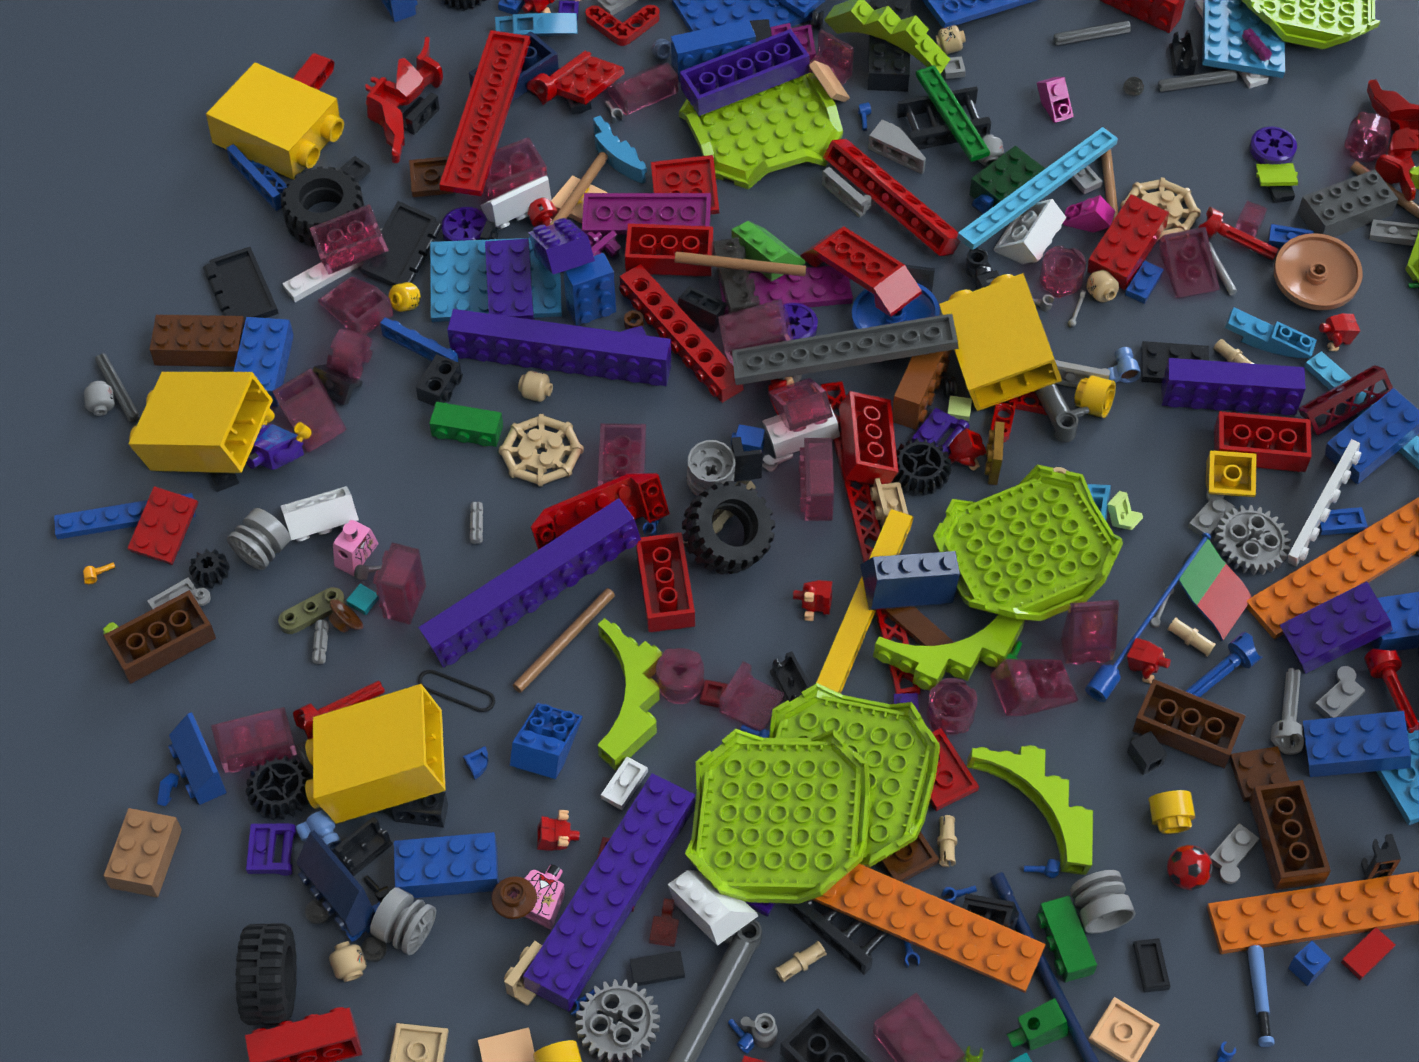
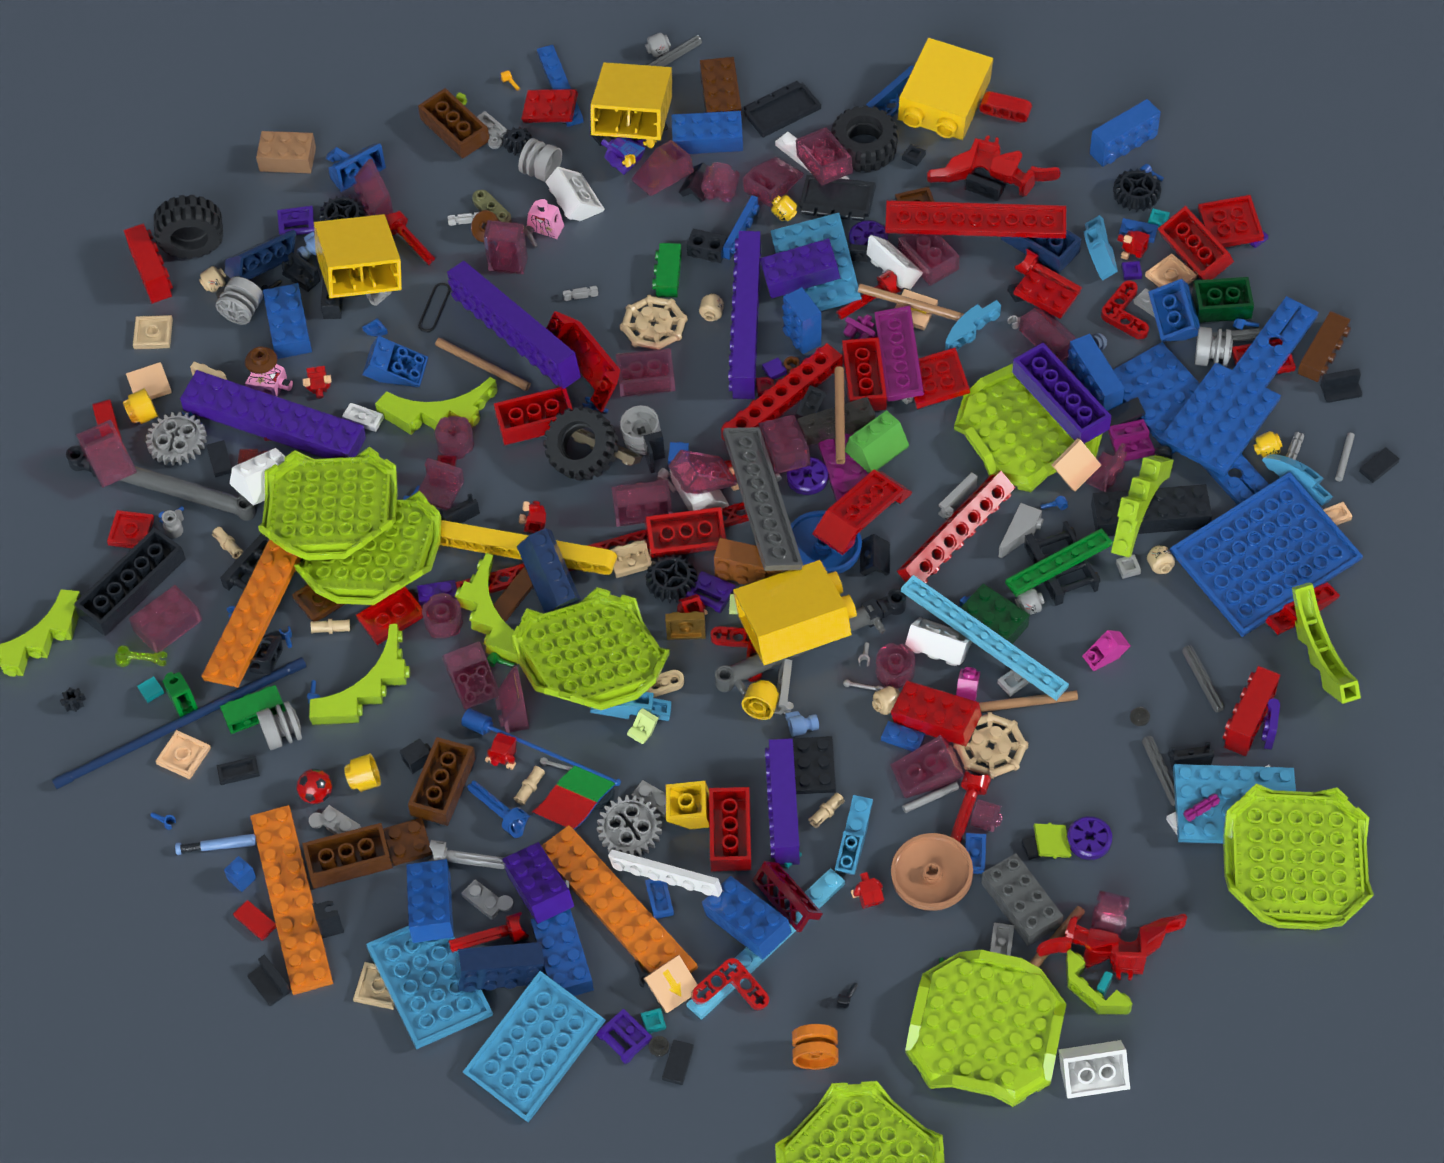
camera: 85 degrees right, 0 degrees up
(561, 246) = (825, 284): dark purple brick -> none

